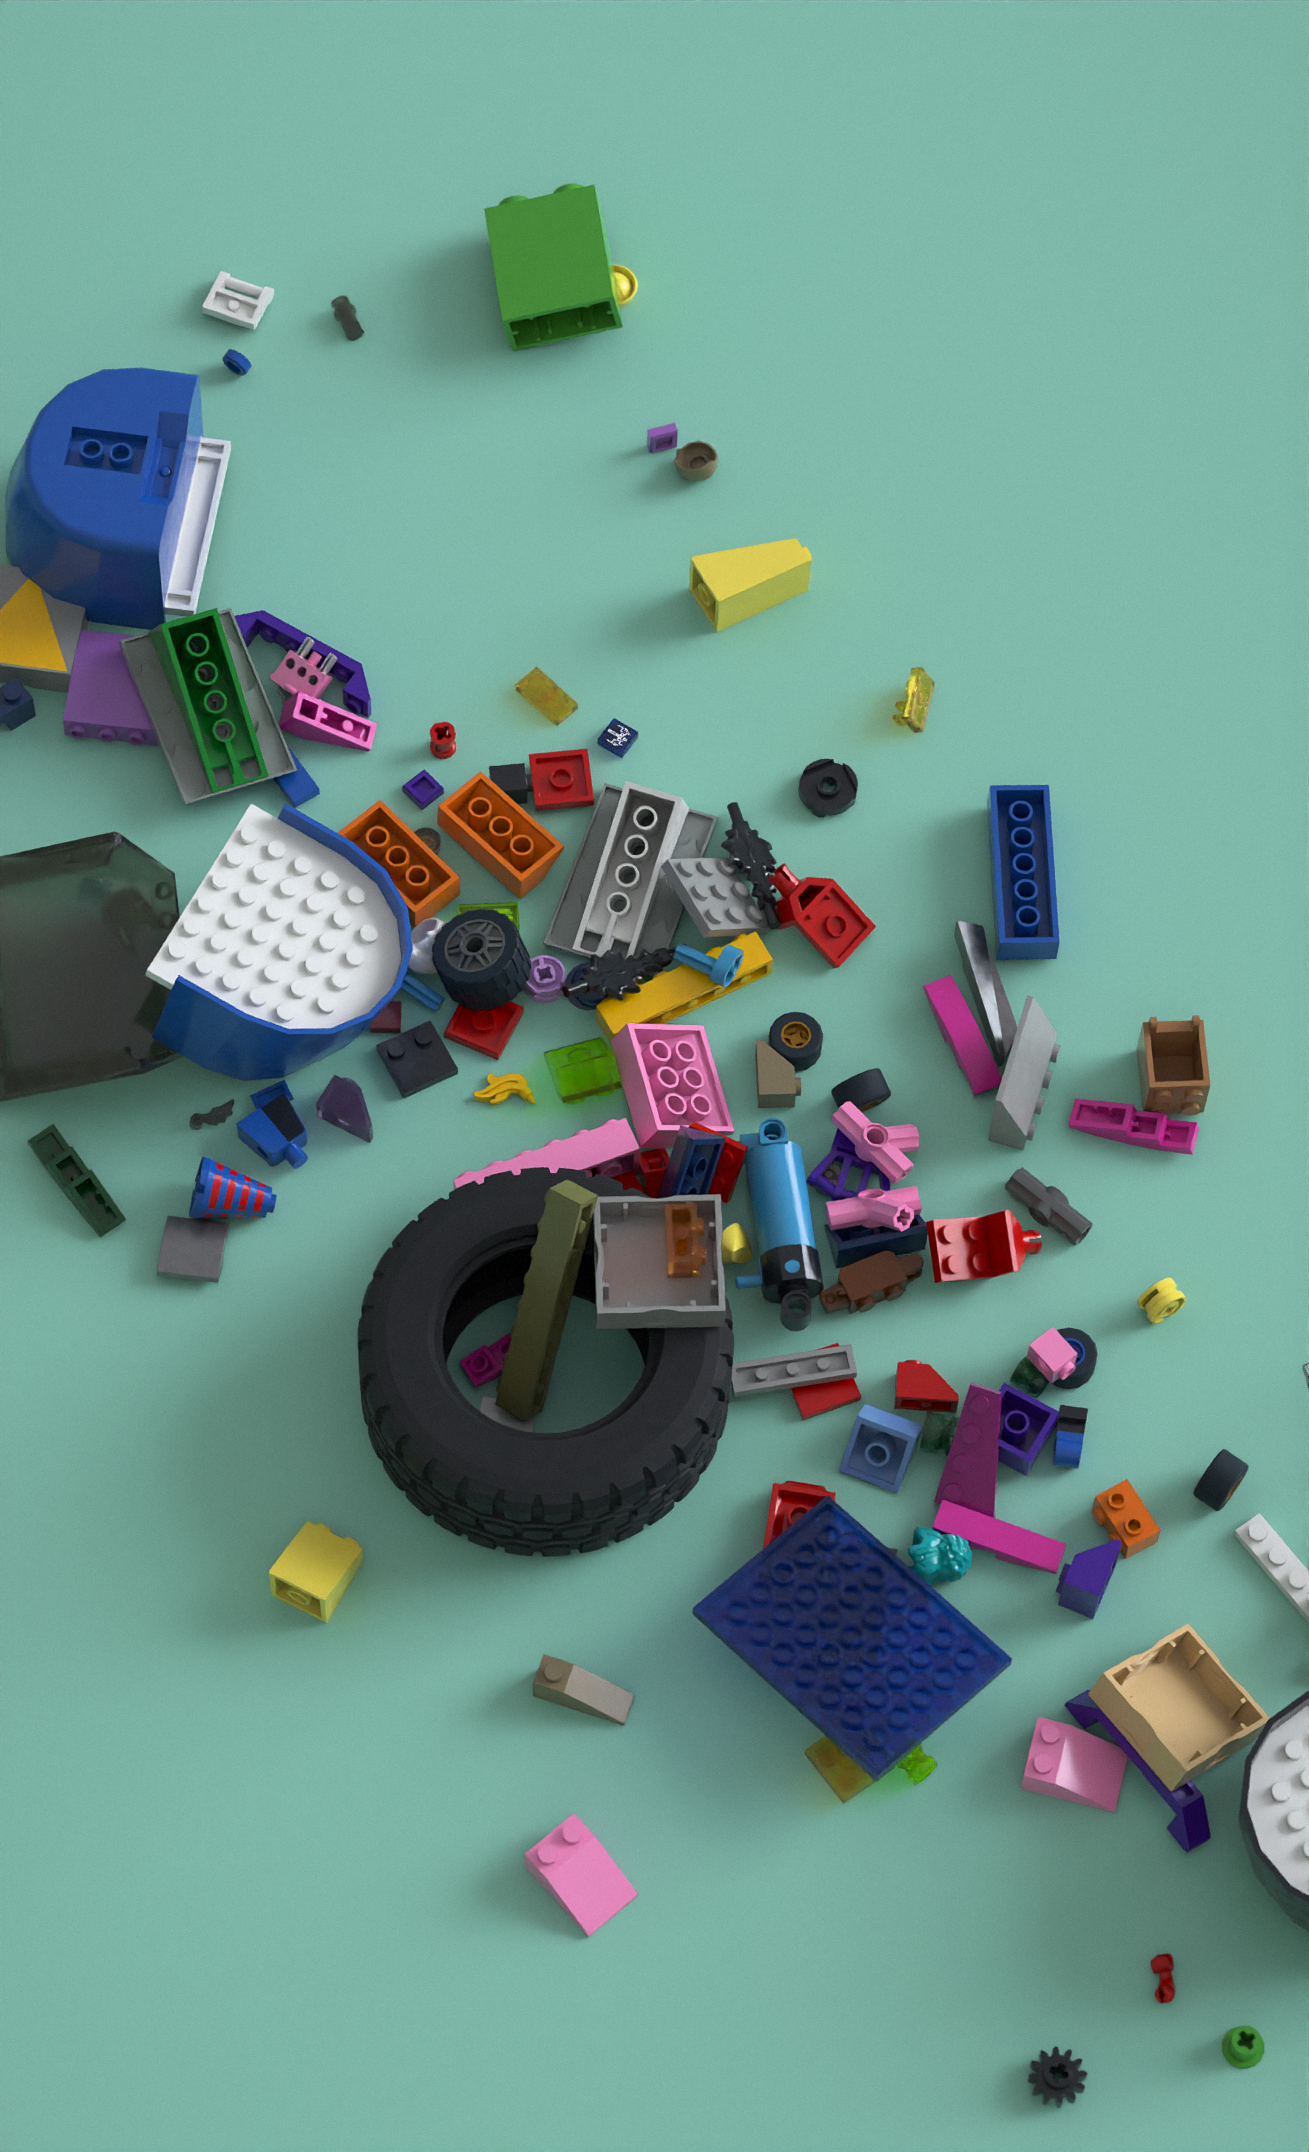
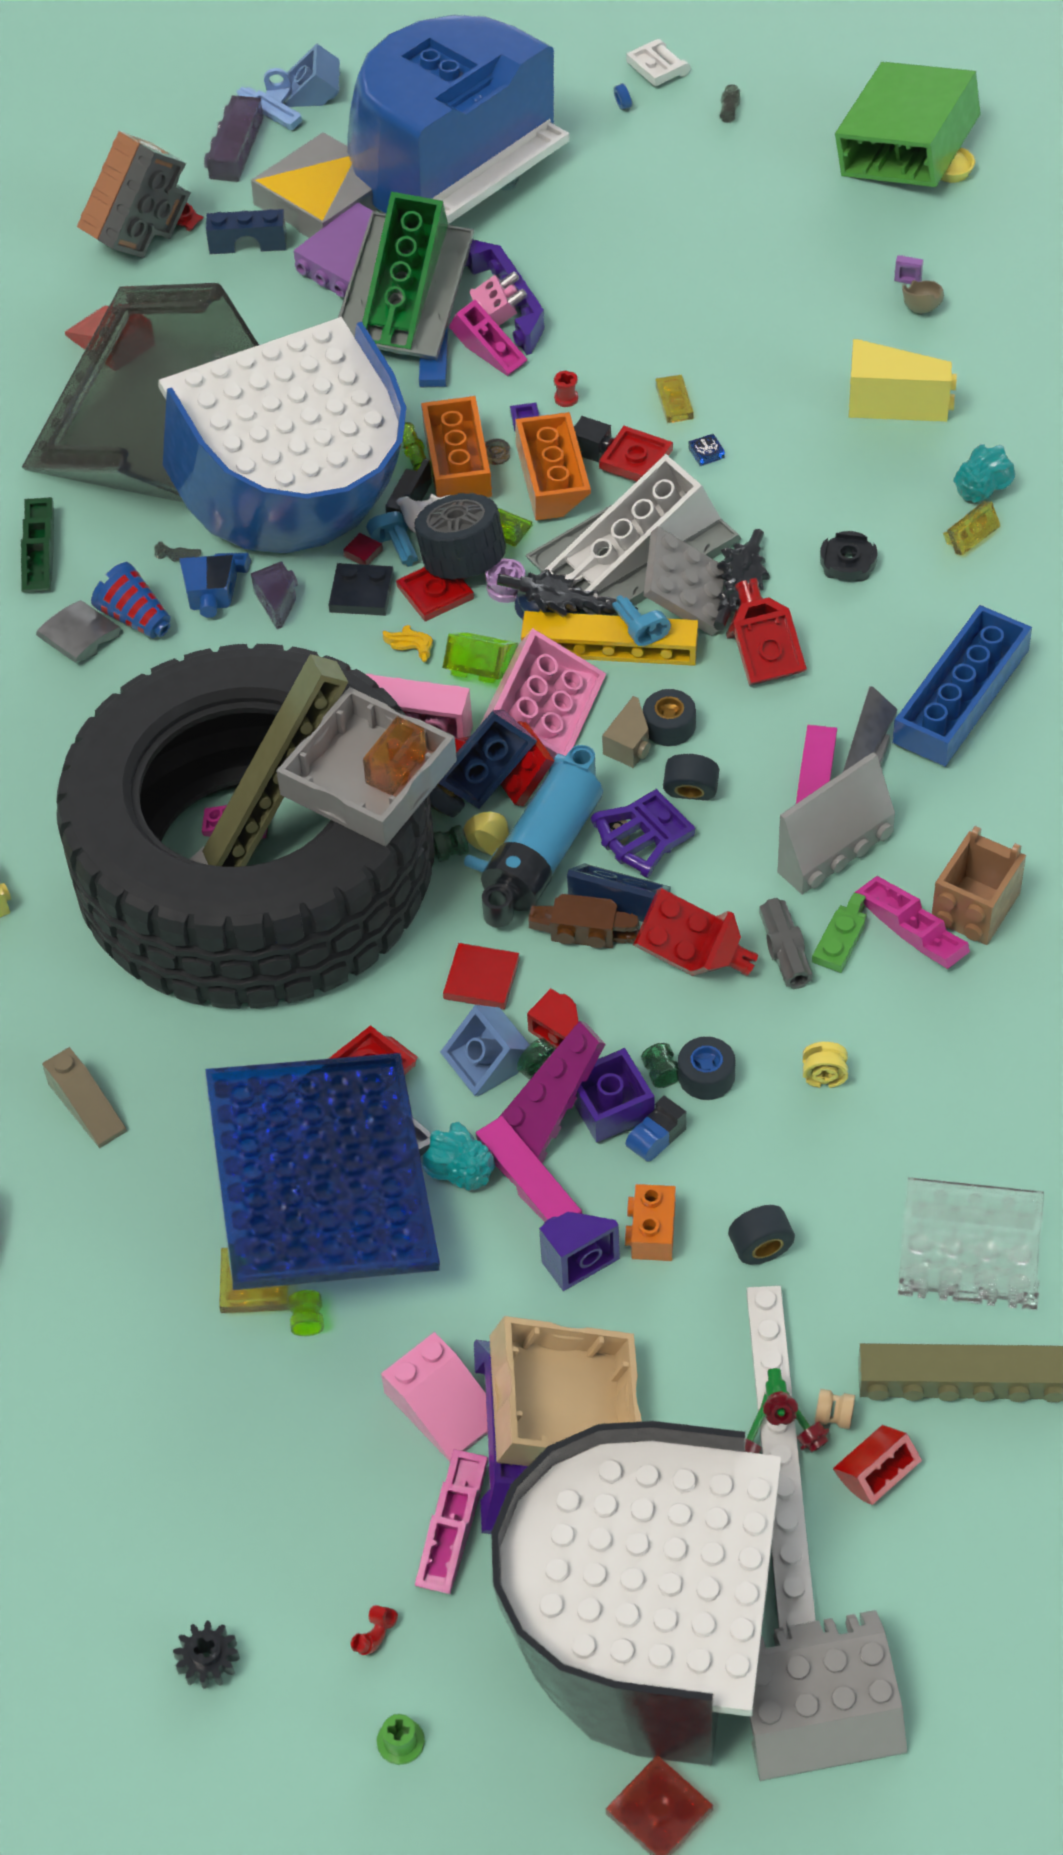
camera: 40 degrees right, 10 degrees down
(793, 1370) = (458, 950): light grey plate -> none
(875, 1209) = (626, 863): bright pink piece -> none
(889, 1141) = (670, 817): bright pink piece -> none
(890, 637) = (983, 473): none -> teal hair
(1052, 1355) = (683, 1048): bright pink brick -> none
(1085, 1171) = (841, 935): none -> bright green hinge
(1156, 1858) = (451, 1522): none -> dark pink slope

